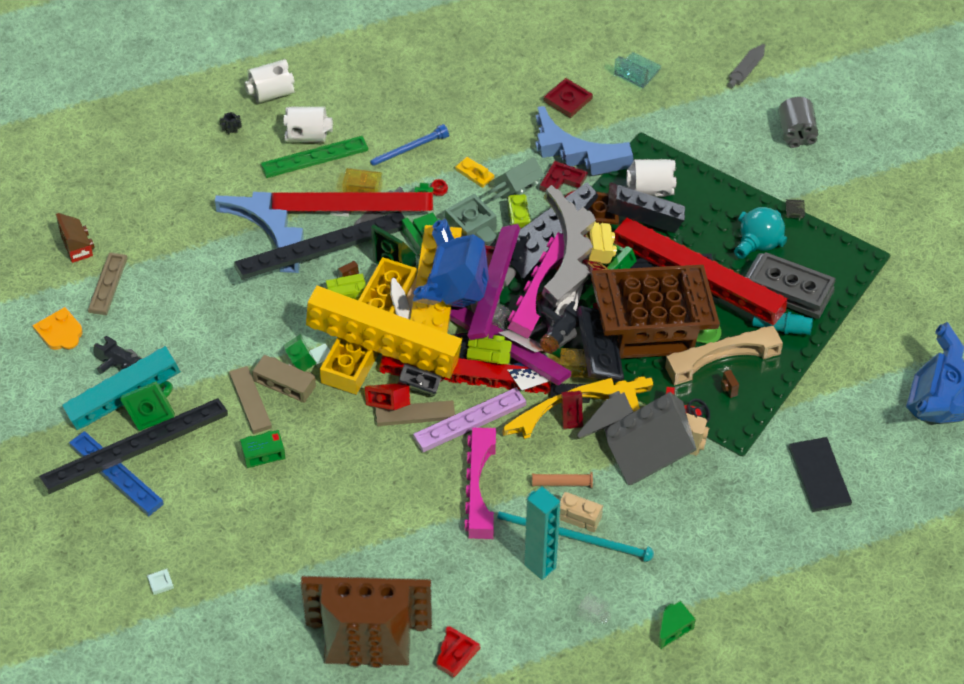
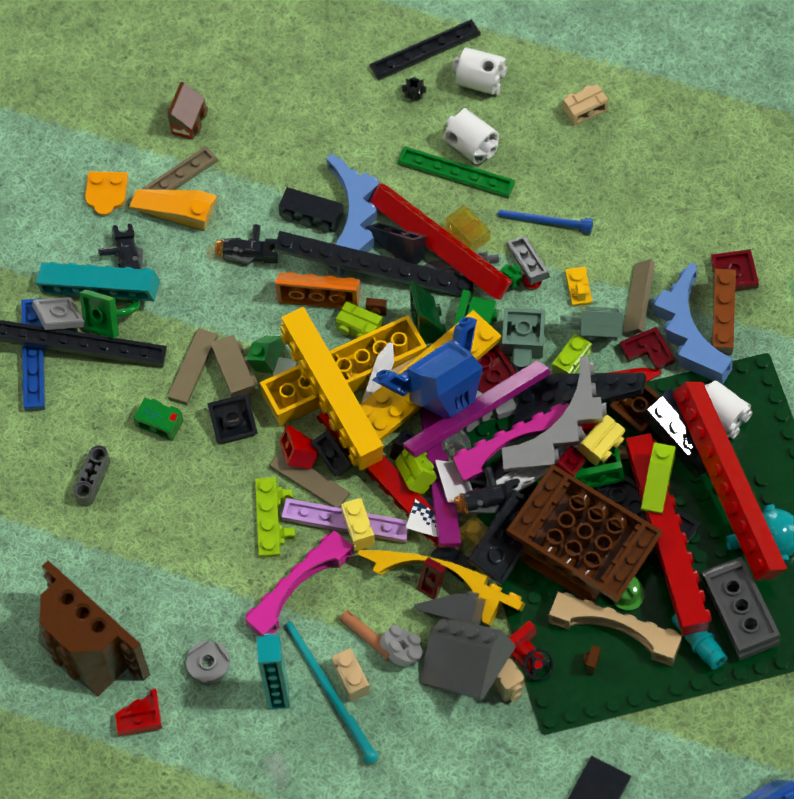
camera: 45 degrees right, 10 degrees up
(110, 430) = (58, 313): none -> light grey plate
(131, 302) = (179, 206): none -> light orange wedge
(211, 96) = (425, 49): none -> black tile
(213, 297) = (247, 250): none -> black piece
(235, 242) = (310, 210): none -> black brick
(255, 530) = (90, 466): none -> dark grey beam
(295, 288) = (317, 290): none -> orange slope
(318, 410) = (232, 418): none -> black slope
(324, 221) = (399, 242): none -> black slope
(363, 60) = (585, 104): none -> tan brick
(401, 448) = (269, 531): none -> lime hinge
(420, 174) = (528, 259): none -> dark grey tile
(464, 590) = (208, 650): none -> light grey plate
(486, 410) = (358, 524): none -> light yellow brick
(519, 146) = (639, 297): none -> dark tan tile
(578, 107) = (723, 310): none -> dark orange arch
(597, 466) = (397, 638): none -> light grey plate
(664, 236) = (658, 478): none -> lime slope
(709, 208) = (729, 481): none -> red brick

